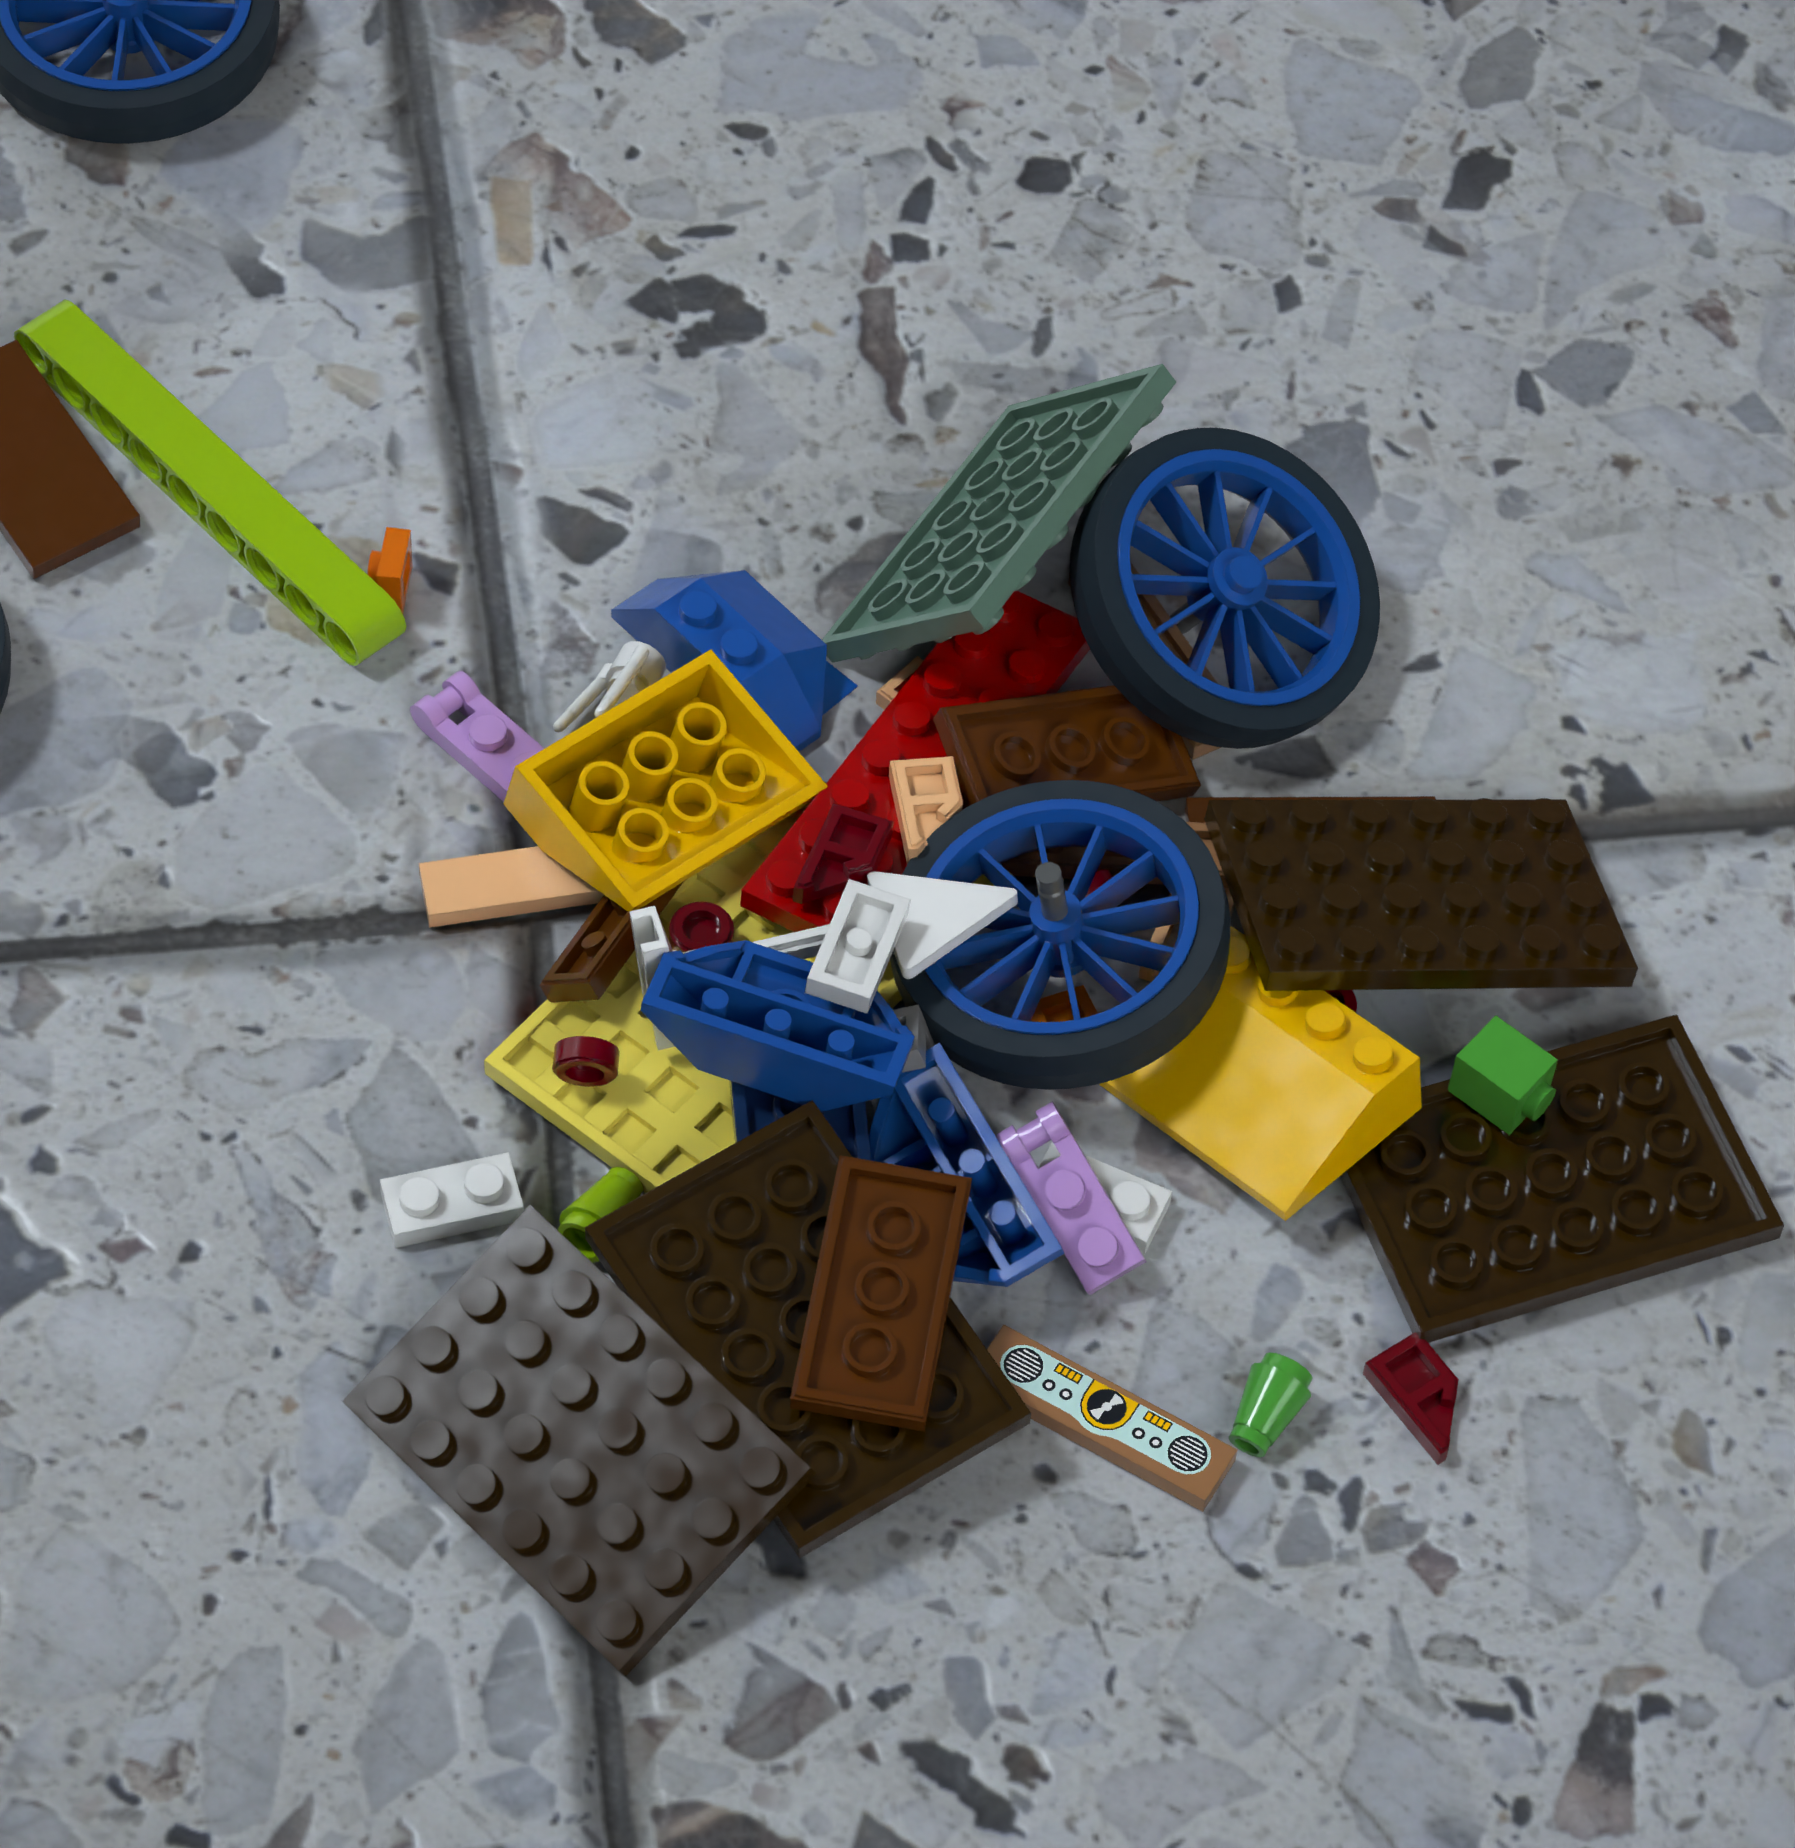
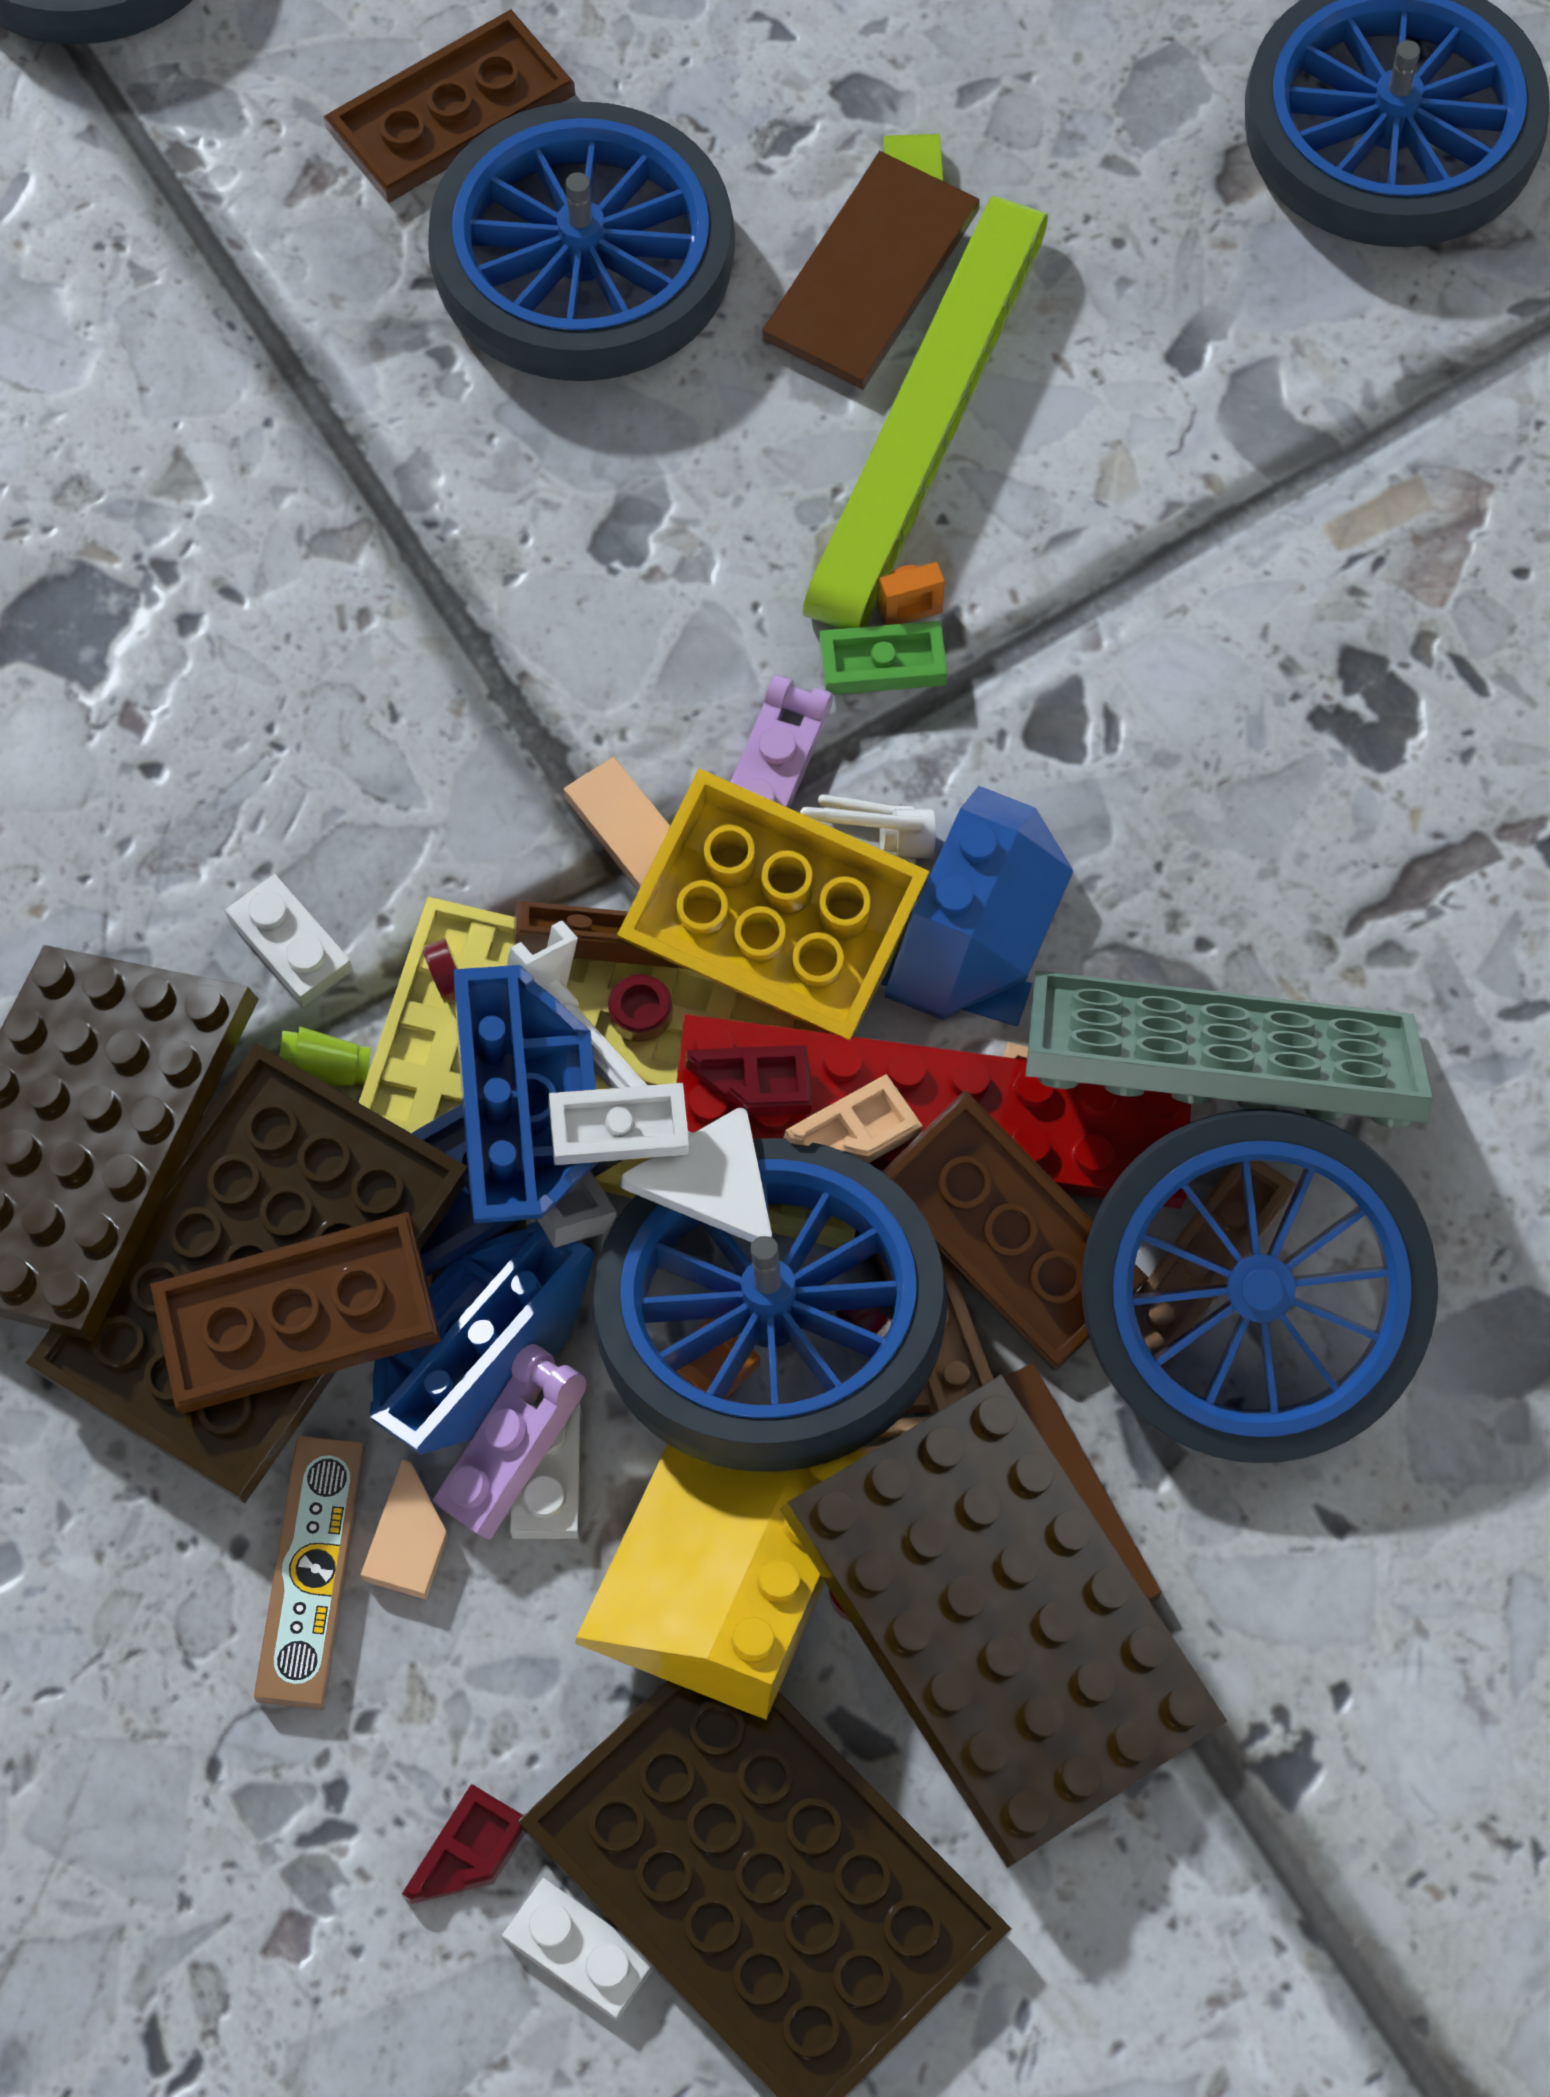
camera: 70 degrees right, 10 degrees up
(443, 621) = (883, 657): none -> bright green plate
(1108, 1328) = (407, 1539): none -> light nougat tile
(1269, 1402) = (384, 1712): bright green cone -> none
(1504, 1076) = (828, 1782): bright green brick -> none
(1546, 1343) = (578, 1949): none -> white plate

